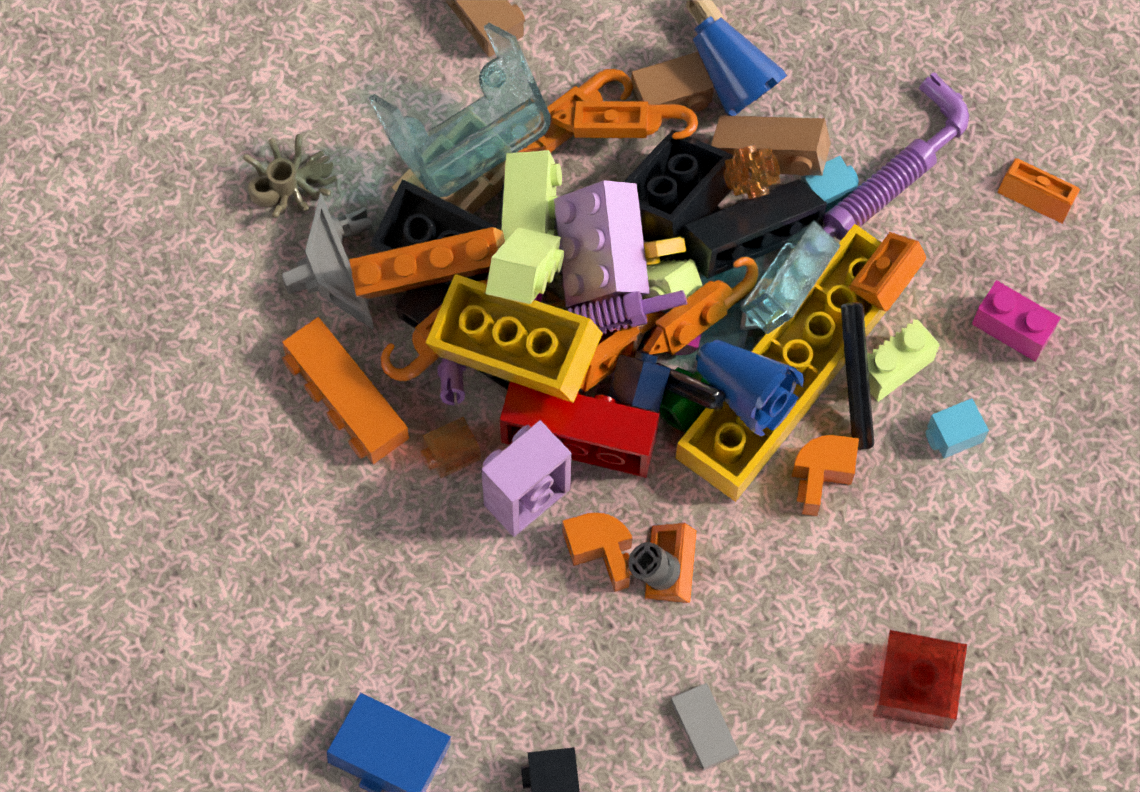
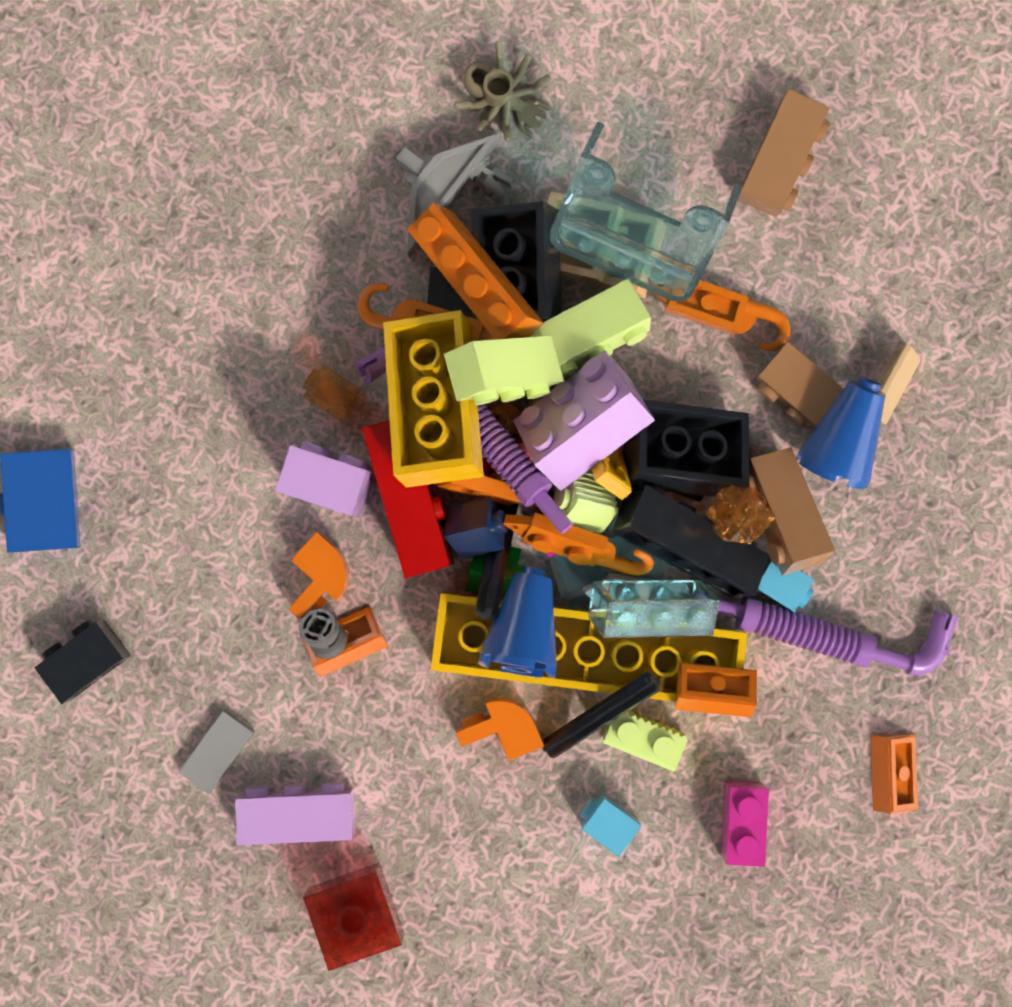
camera: 60 degrees right, 20 degrees up
(345, 391) = (331, 268): orange brick -> none
(623, 119) = (732, 363): orange plate -> none
(800, 684) = (295, 814): none -> lavender brick

